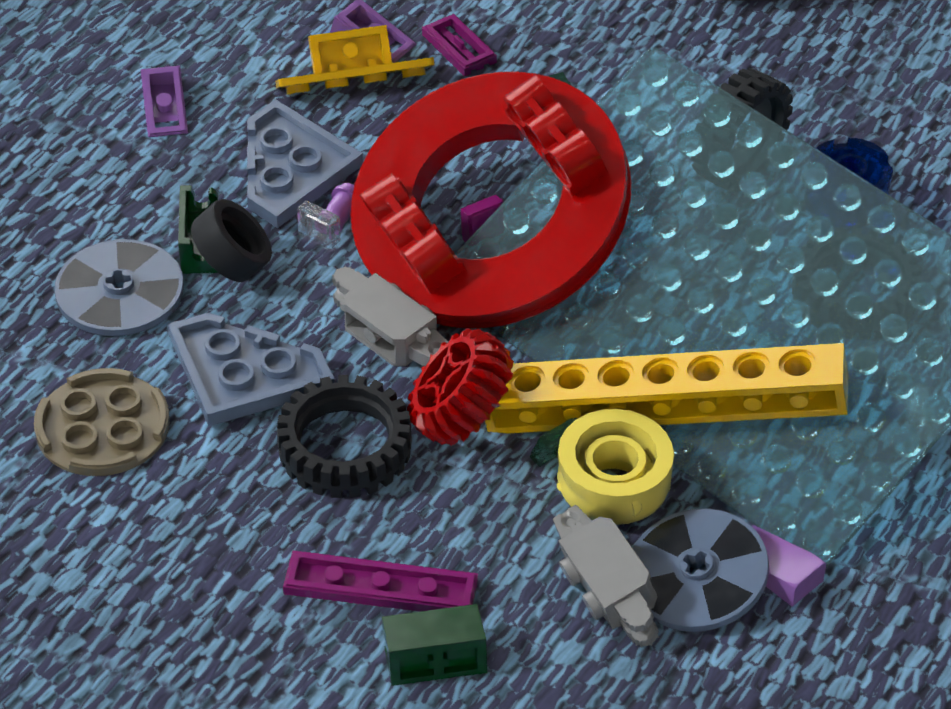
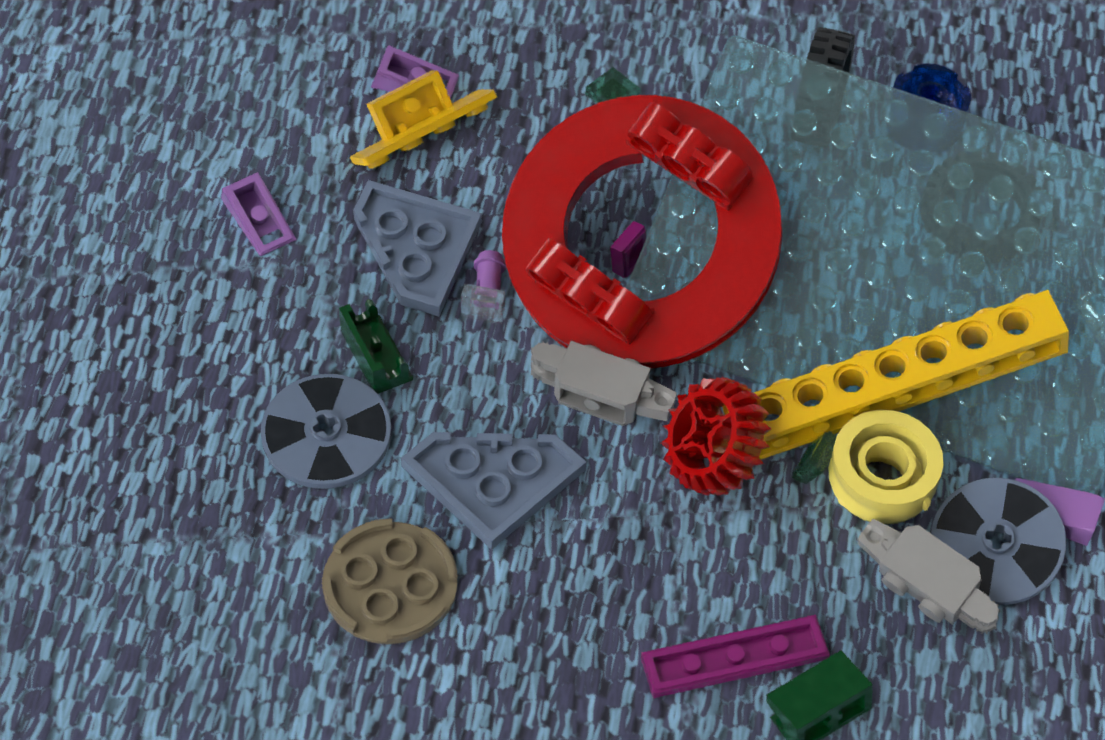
camera: 25 degrees left, 10 degrees up
(231, 240) = (417, 350): black tyre -> none
(351, 474) = (618, 563): black tyre -> none
(459, 57) = (496, 68): magenta tile -> none

